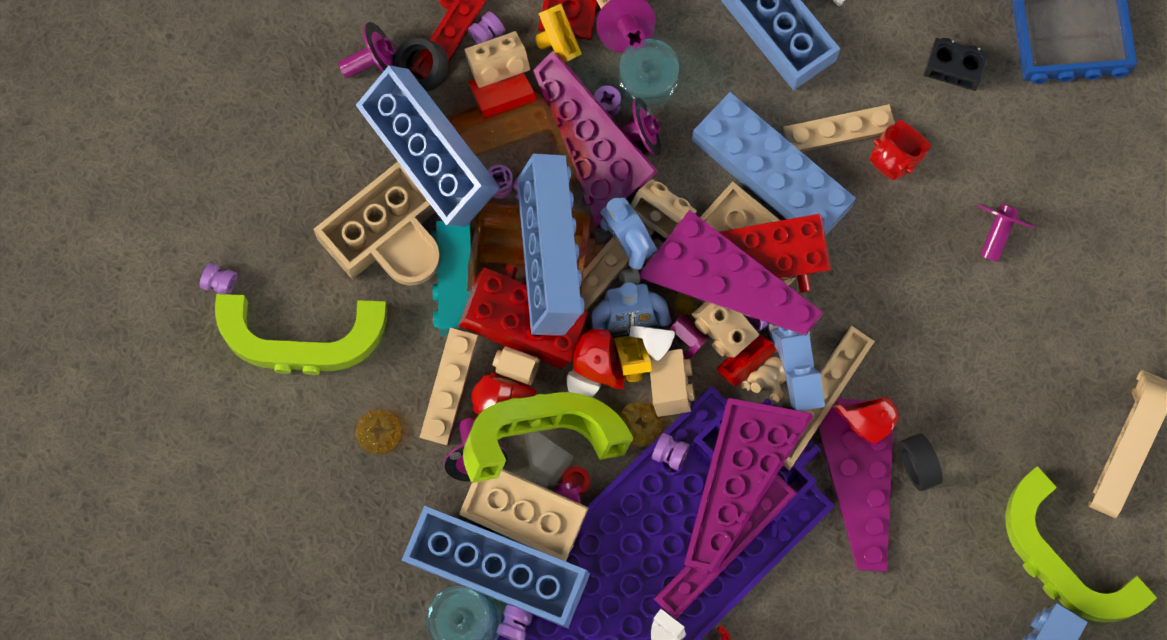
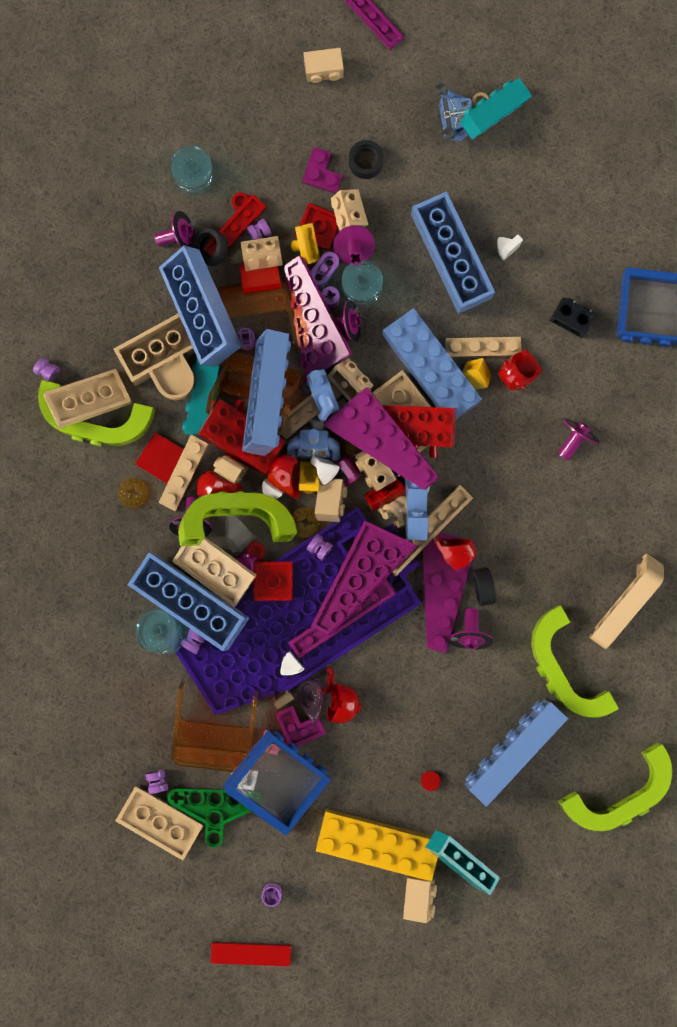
camera: 10 degrees right, 10 degrees up
(287, 307) = (87, 398): none -> tan plate
(409, 373) = (160, 457): none -> red tile
(592, 67) = (323, 269): none -> medium lavender plate
(613, 515) = (273, 581): none -> red tile
(840, 165) = (477, 373): none -> yellow panel
(919, 538) = (471, 637): none -> magenta piece

